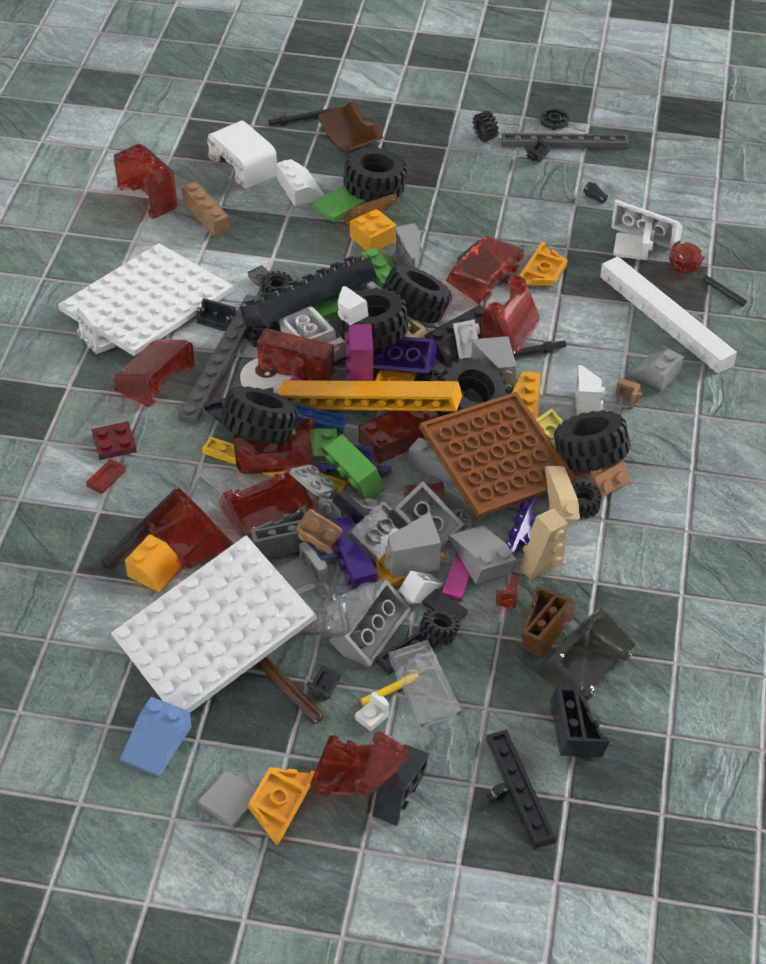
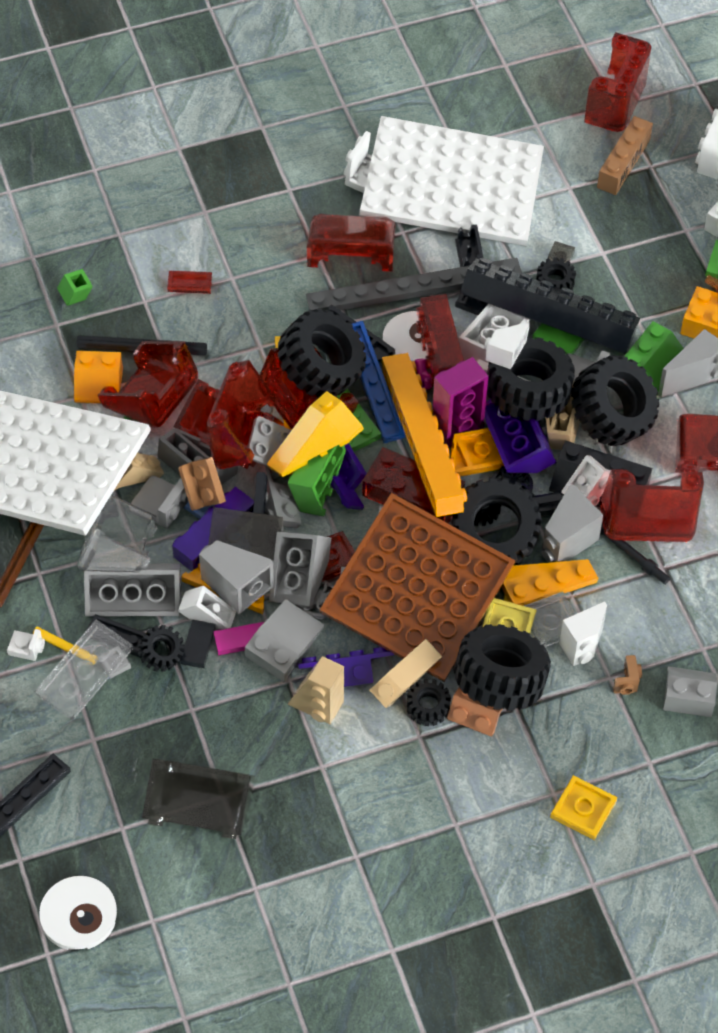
camera: 60 degrees right, 10 degrees up
(56, 540) = (74, 287): none -> bright green brick
(114, 440) = (240, 262): dark red plate -> none
(294, 492) = (237, 402): none -> clear red windscreen
(324, 682) = (35, 586): black bracket -> none
(333, 440) = (319, 429): none -> yellow wedge
(508, 597) = (250, 693): clear red bracket -> none
(546, 621) = (222, 739): reddish brown wedge -> none
(574, 725) = (103, 822): black wedge -> none
(639, 777) = (78, 913): none -> white tile
(714, 460) = (583, 807): none -> yellow tile

